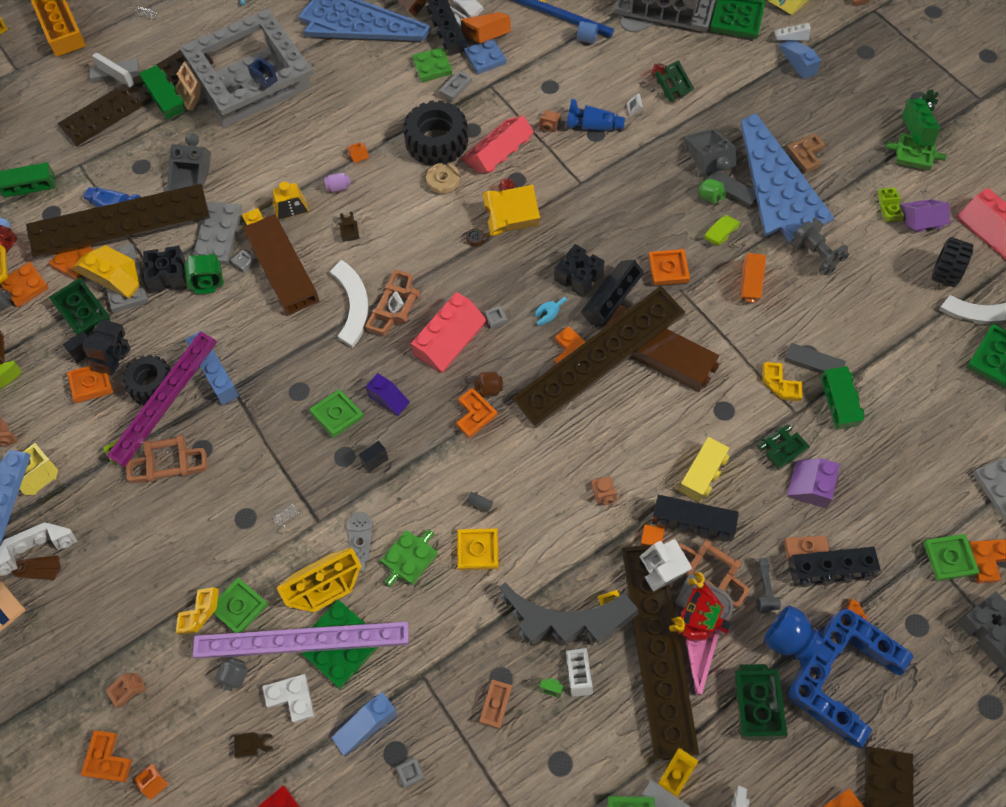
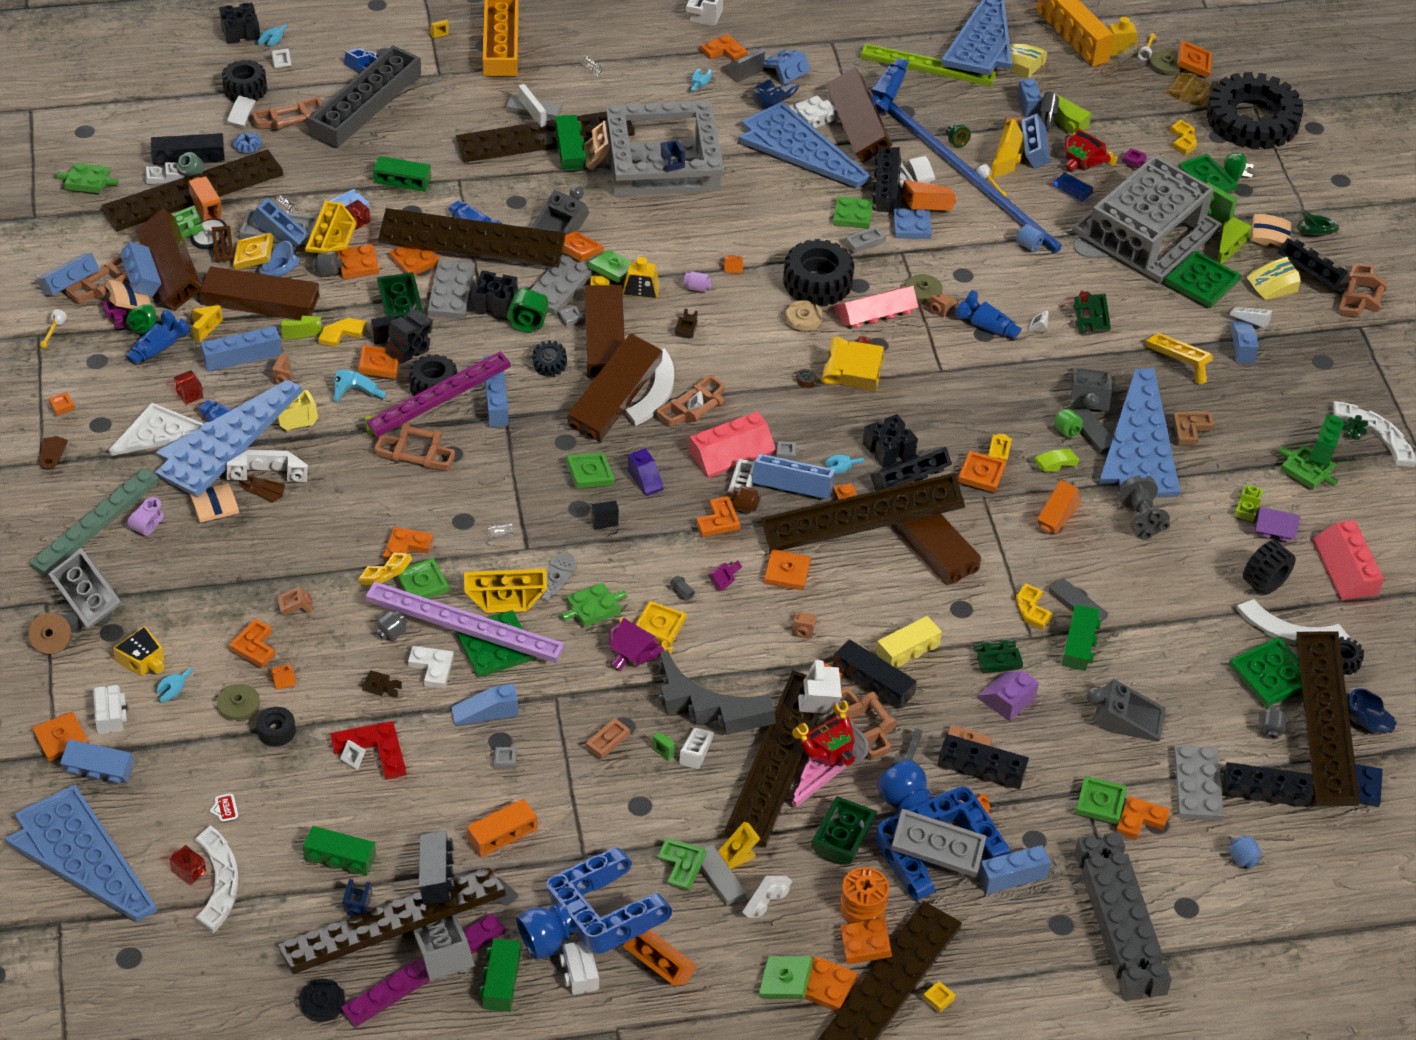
camera: 20 degrees right, 15 degrees down
(33, 368) = (333, 333): none -> yellow tile
(67, 415) = (348, 379): none -> medium azure animal
(109, 270) = (443, 276): yellow wedge -> none
(200, 566) = (405, 539): none -> orange plate
(219, 188) = (580, 246): none -> orange plate
(245, 313) = (549, 358): none -> black wheel
(255, 197) = (610, 265): none -> bright green plate
(319, 321) = (614, 387): none -> reddish brown brick
(468, 588) = (633, 645): none -> magenta torso
(473, 348) = (742, 465): none -> white slope
(509, 472) = (723, 575): none -> magenta plate
(519, 342) = (793, 476): none -> medium blue brick
(529, 108) = (925, 287): none -> olive plate
(560, 439) = (787, 569): none -> orange plate
(671, 237) = (1000, 446): none -> yellow bracket
(764, 88) = (1182, 352): none -> yellow piece
(818, 787) = (864, 895): none -> orange wheel
(857, 685) = (938, 842): none -> light grey plate
(919, 455) = (1127, 711): none -> dark grey slope
(926, 672) = (1014, 869): none -> medium blue brick
(947, 93) = (1386, 431): none -> white tile

